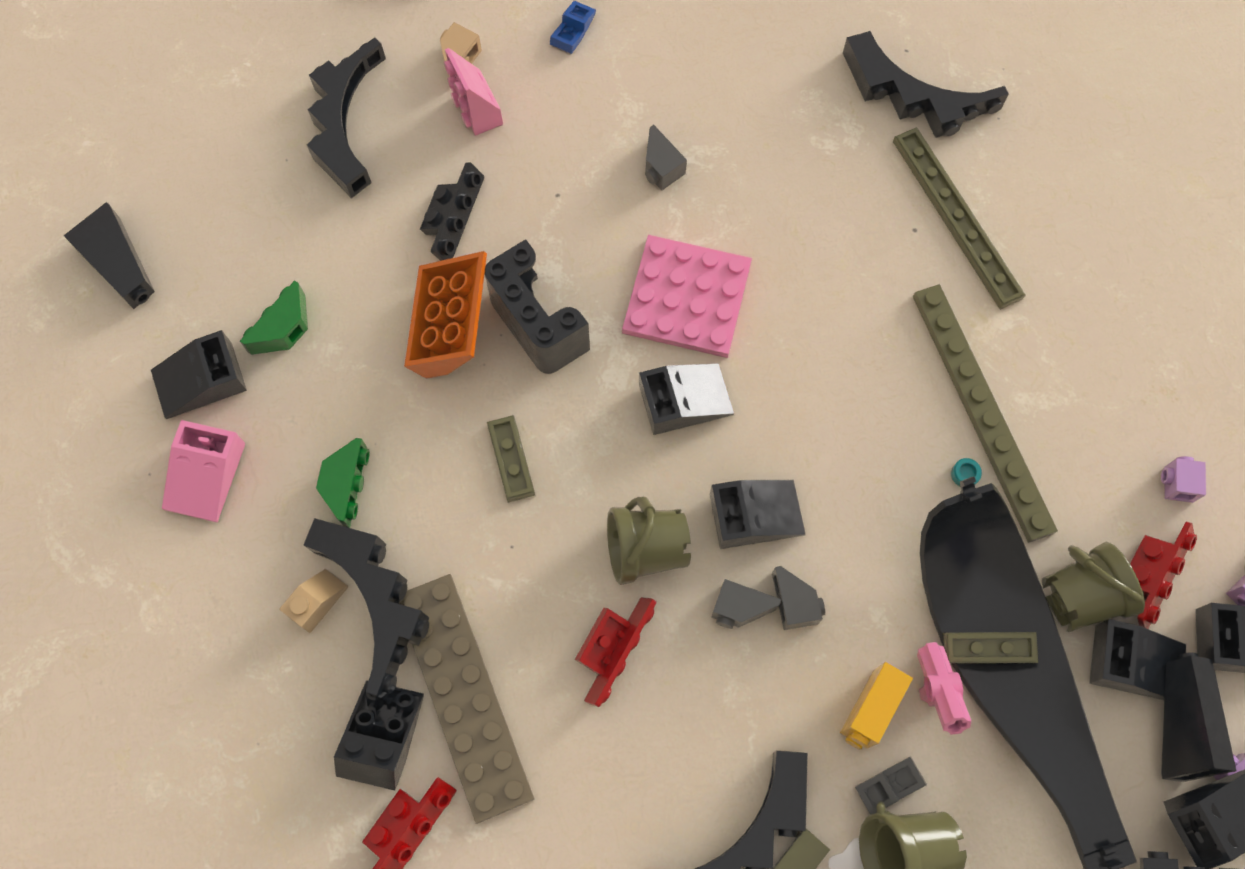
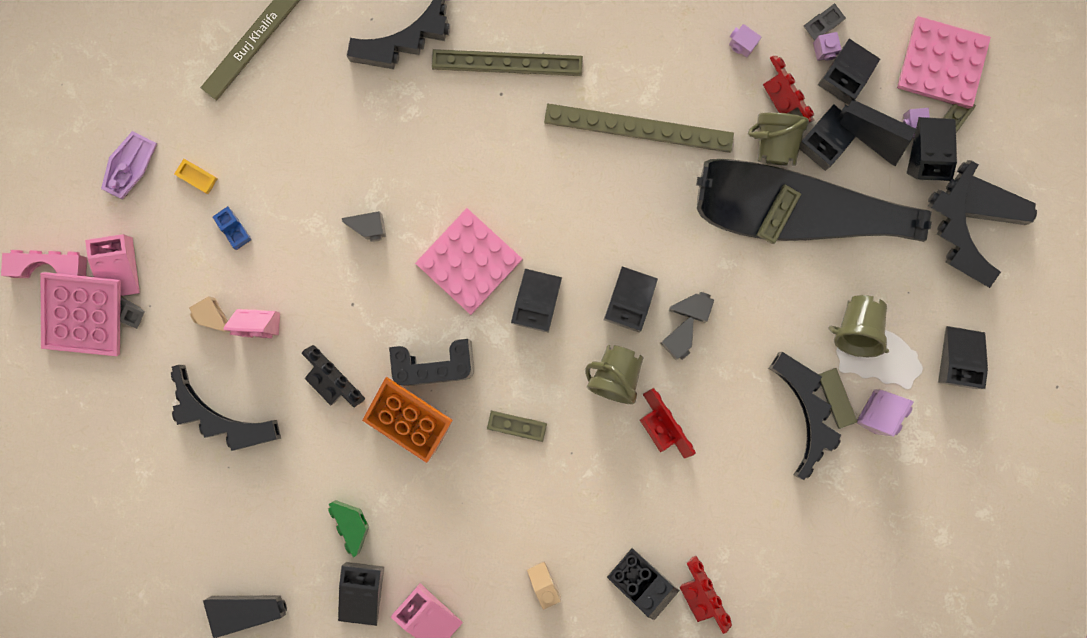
camera: 55 degrees left, 15 degrees up
(342, 479) = (478, 535): green slope -> none
(382, 589) = (587, 547): black arch -> none
(467, 703) = (645, 525): dark tan plate -> none
(876, 706) = (778, 299): yellow brick -> none
(891, 785) = (820, 314): dark grey slope -> none
(943, 689) = (790, 257): bright pink piece -> none
(965, 469) = (671, 162): teal tile -> none

